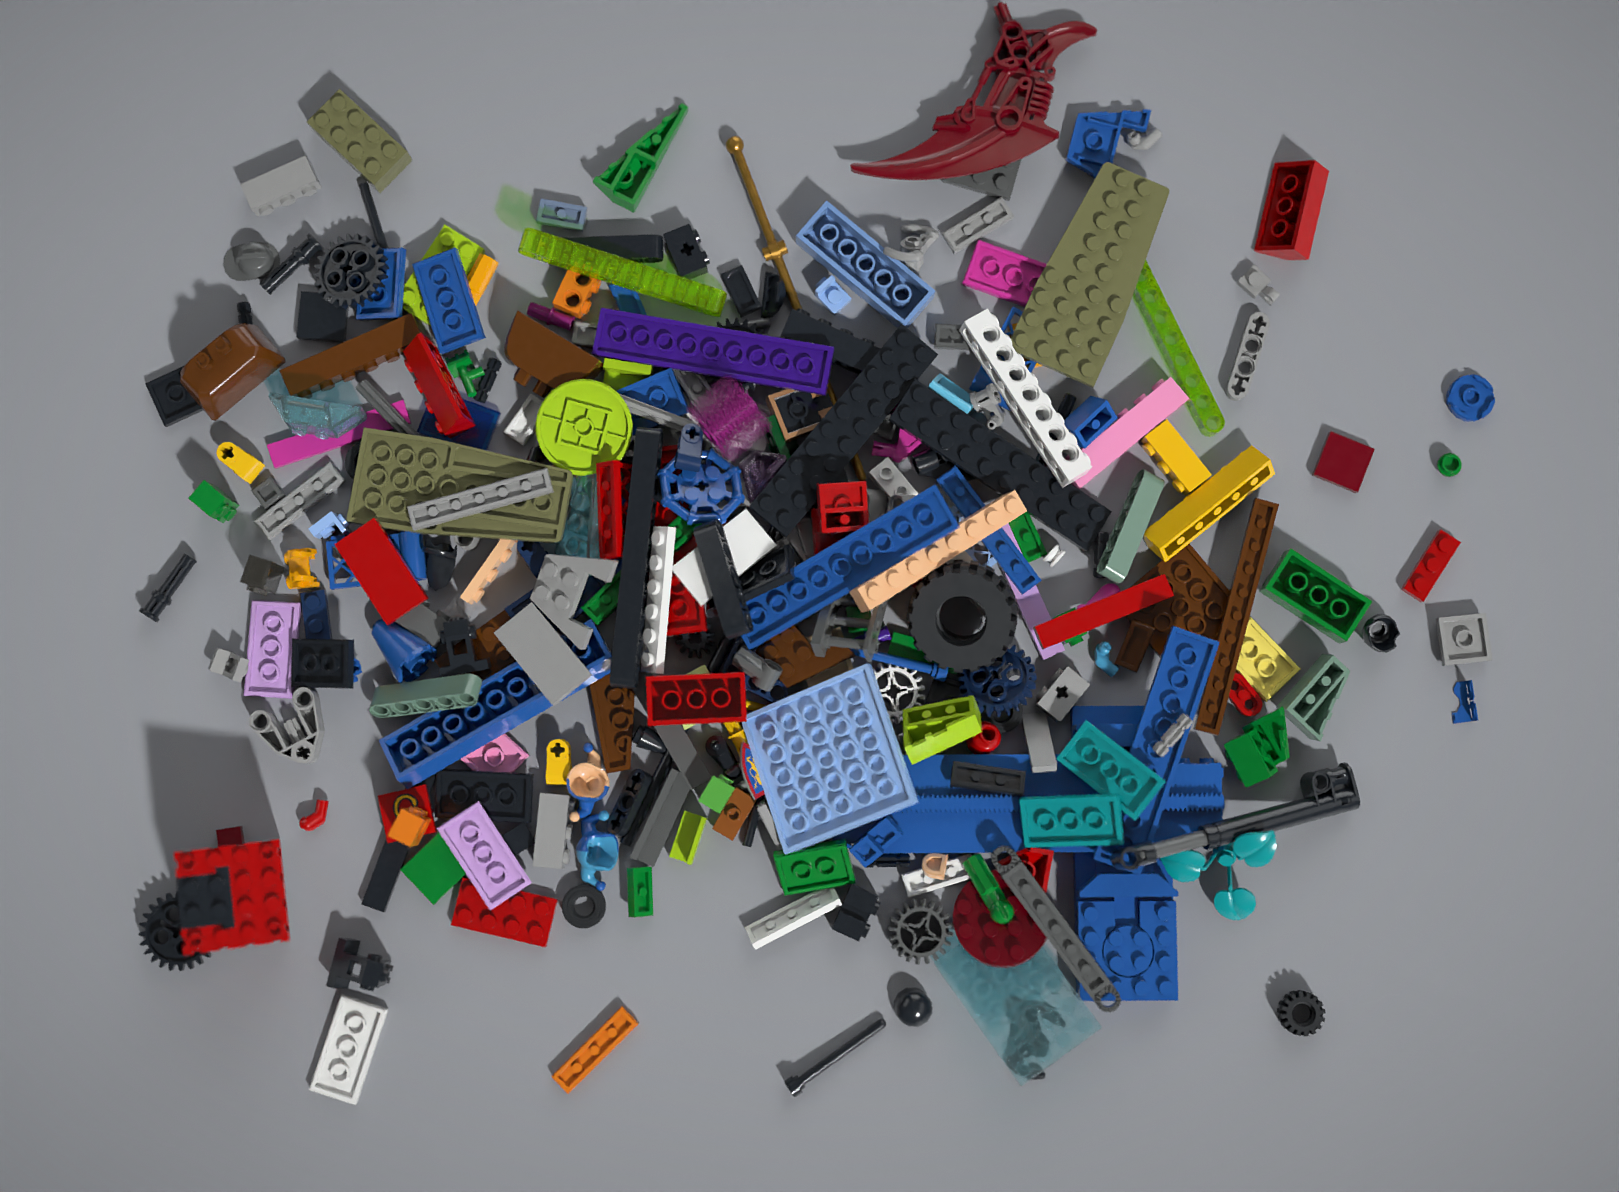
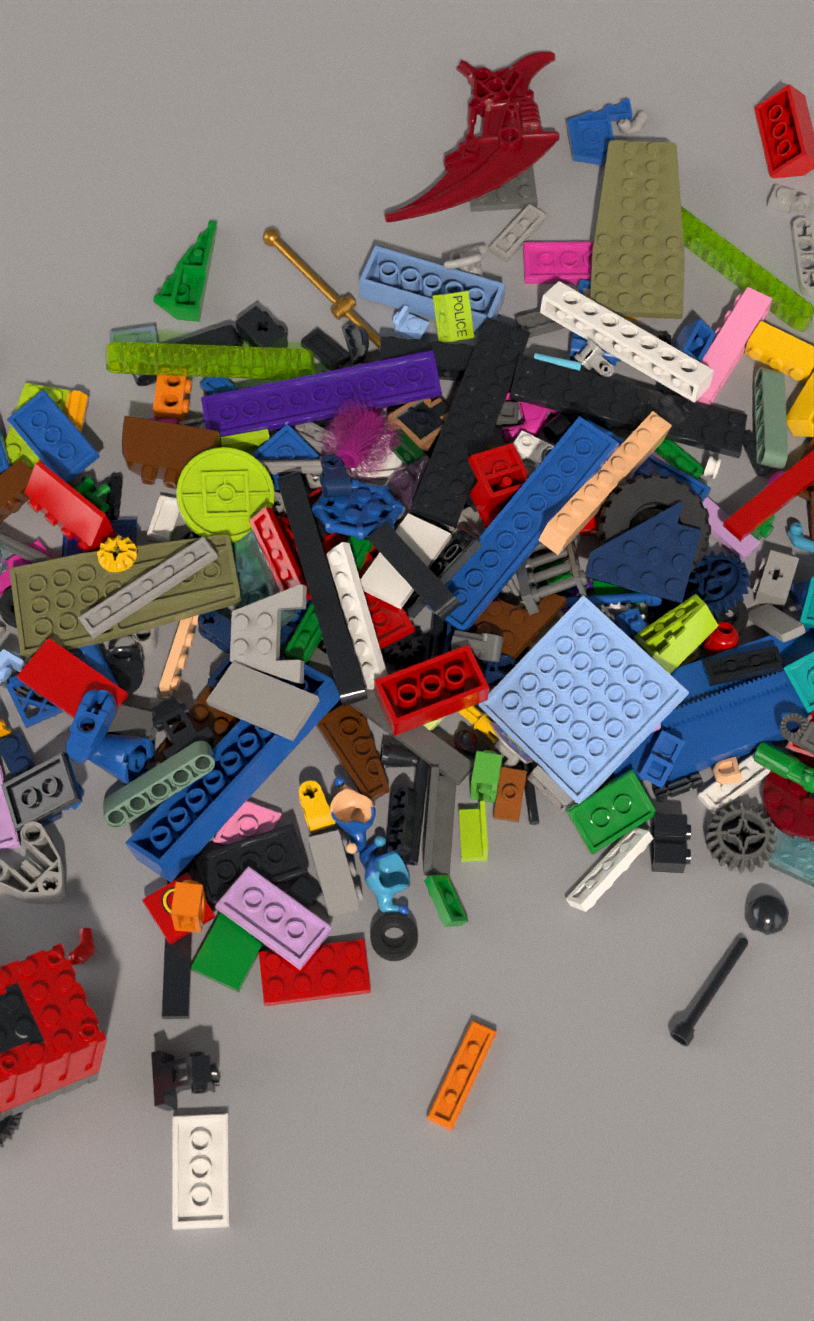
camera: 15 degrees left, 20 degrees down
(368, 636) = (83, 743): none -> blue piece
(467, 464) = (124, 559): none -> yellow gear
(870, 310) = (453, 316): none -> lime panel
(905, 695) = (630, 622): none -> blue tile
(943, 647) = (649, 557): none -> dark blue wing

